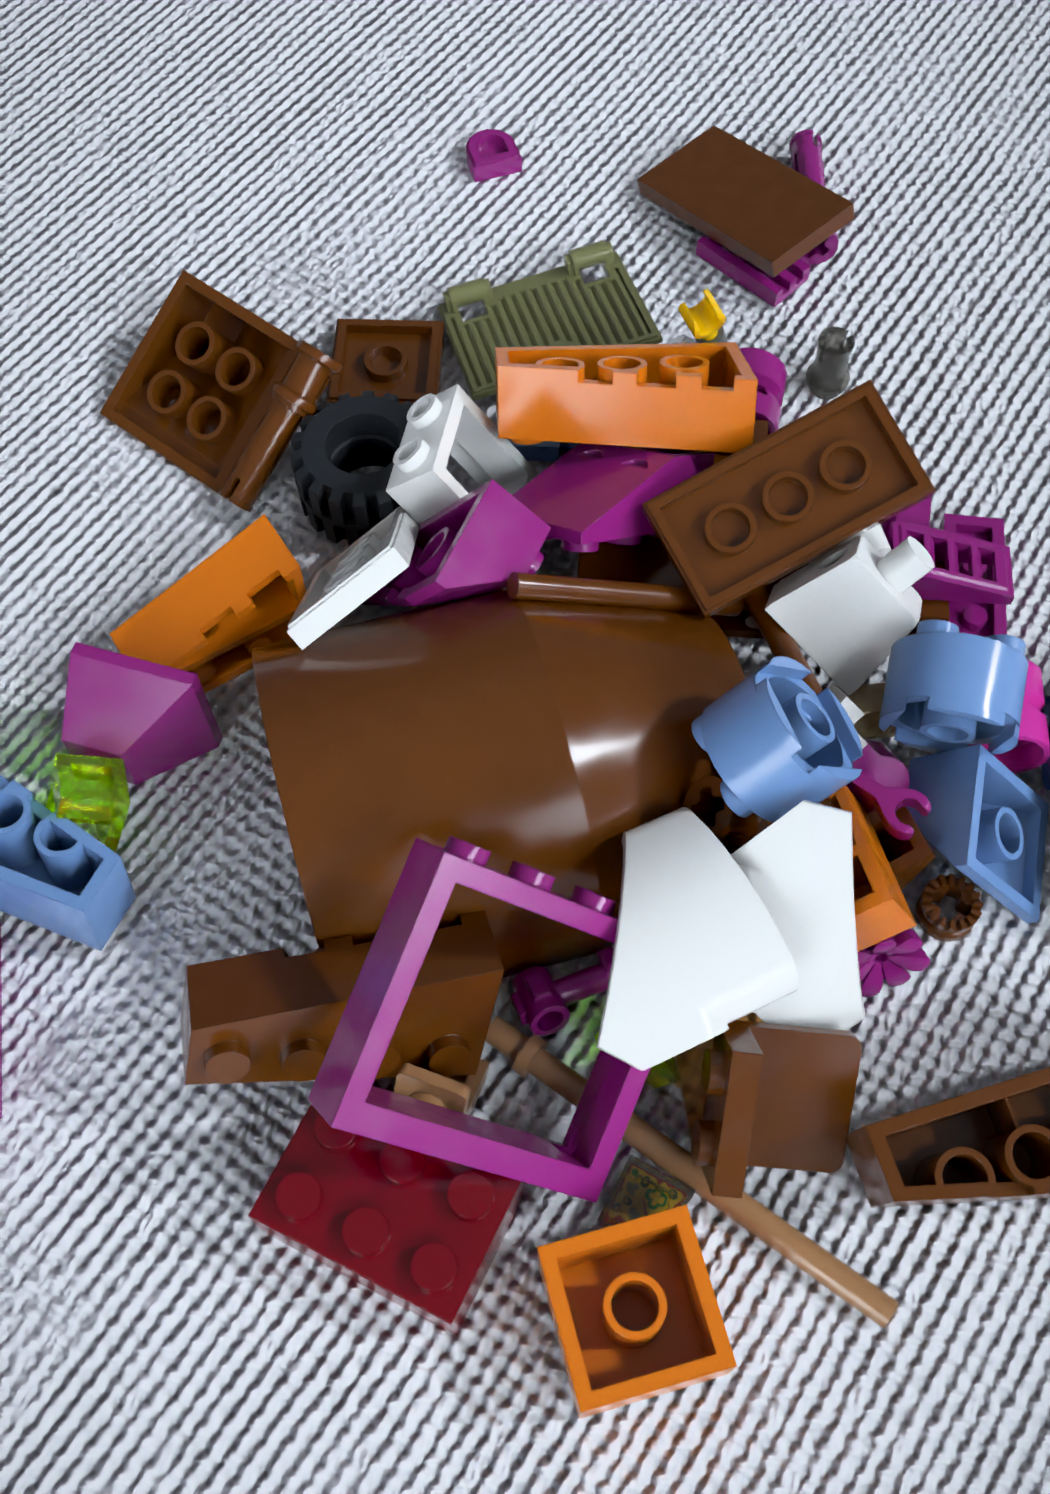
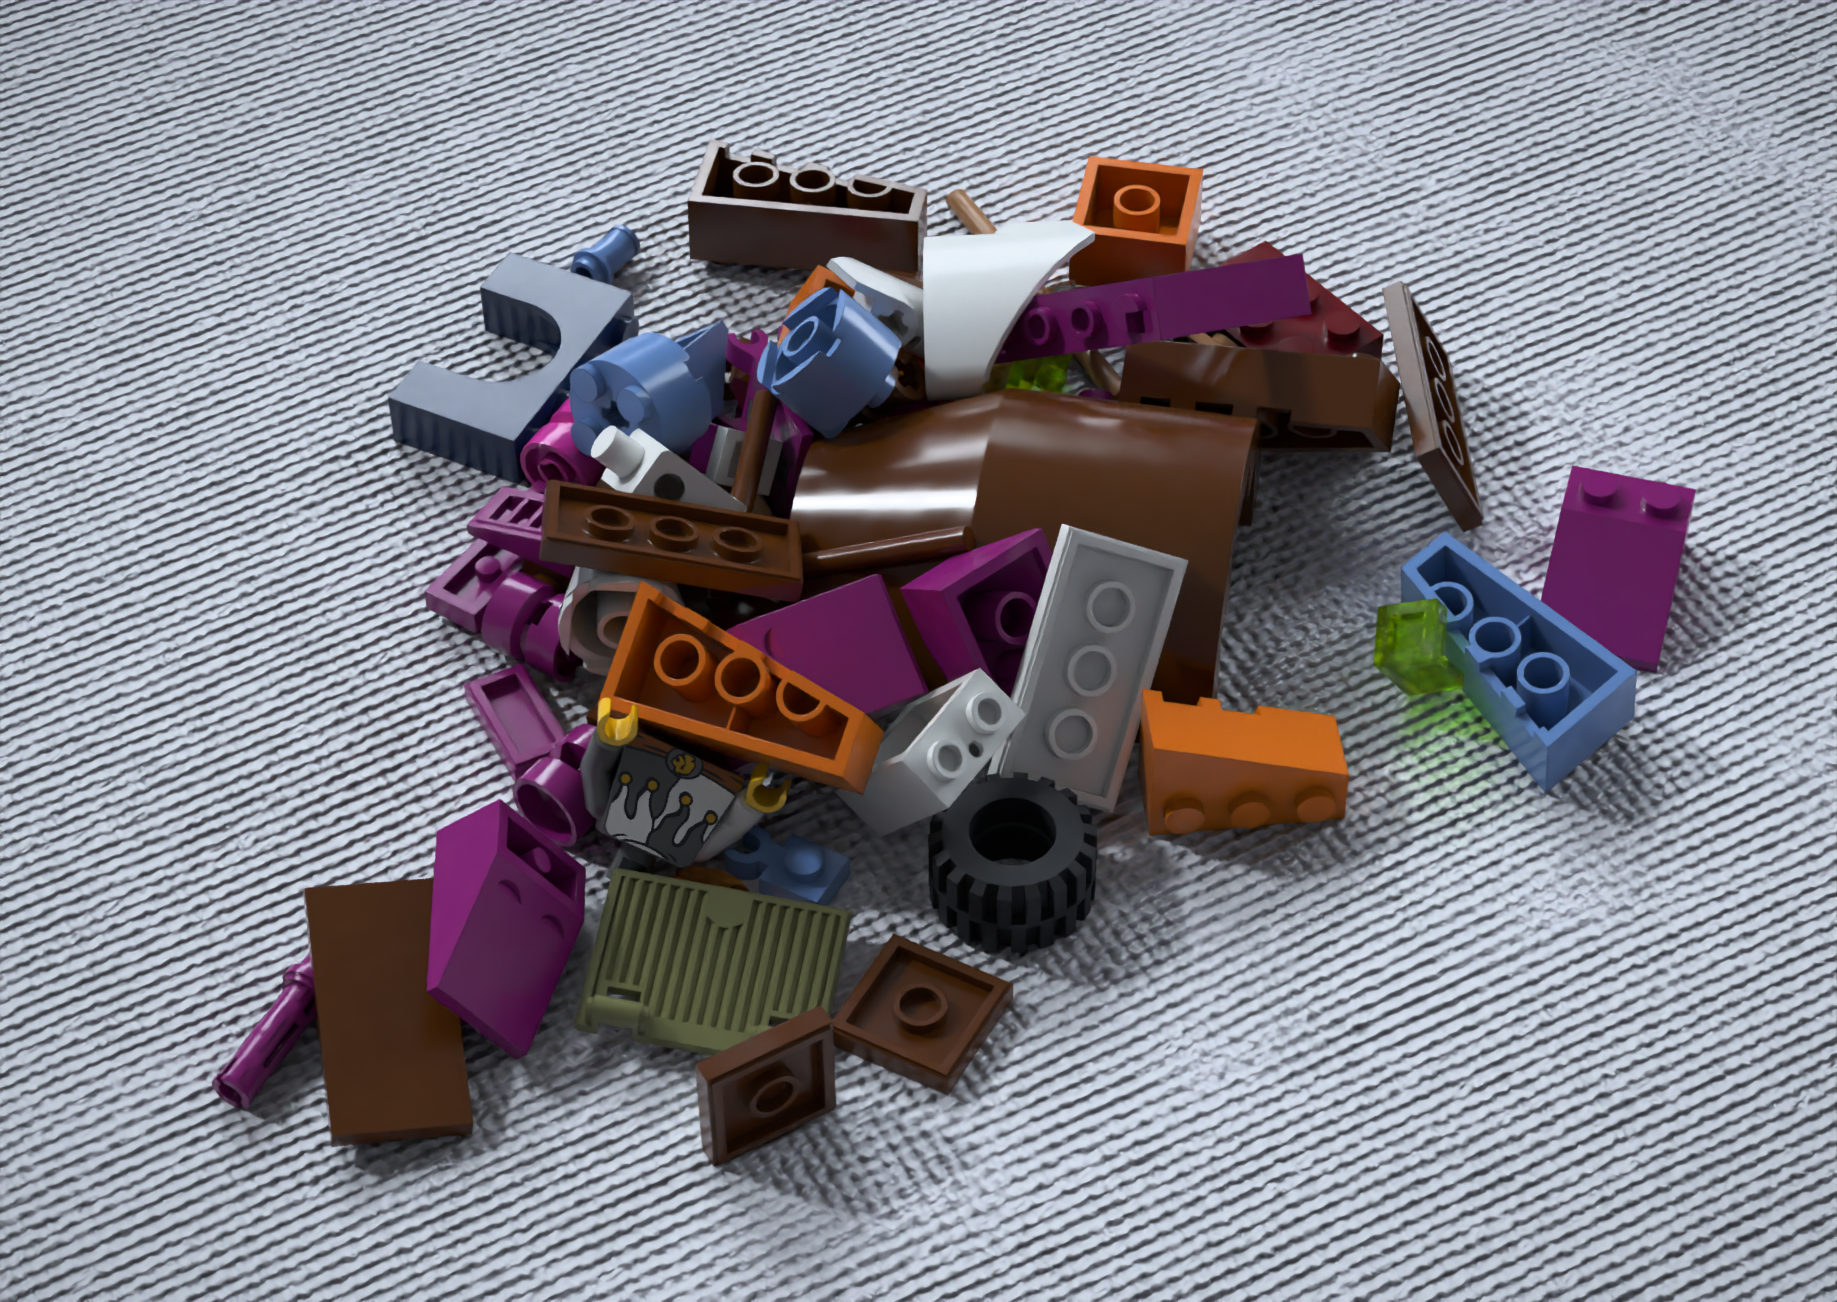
camera: 155 degrees left, 15 degrees down
(135, 712) = (1373, 713): magenta slope -> none
(166, 1146) = (1433, 406): none -> reddish brown tile
(200, 380) = (1133, 1043): reddish brown slope -> none
(292, 401) = (1063, 916): reddish brown pin -> none
(445, 226) = (766, 1085): none -> reddish brown tile
(492, 155) = (620, 1256): magenta tile -> none
(714, 245) = (501, 923): none -> magenta slope
(829, 373) = (451, 788): clear smoke pin -> none

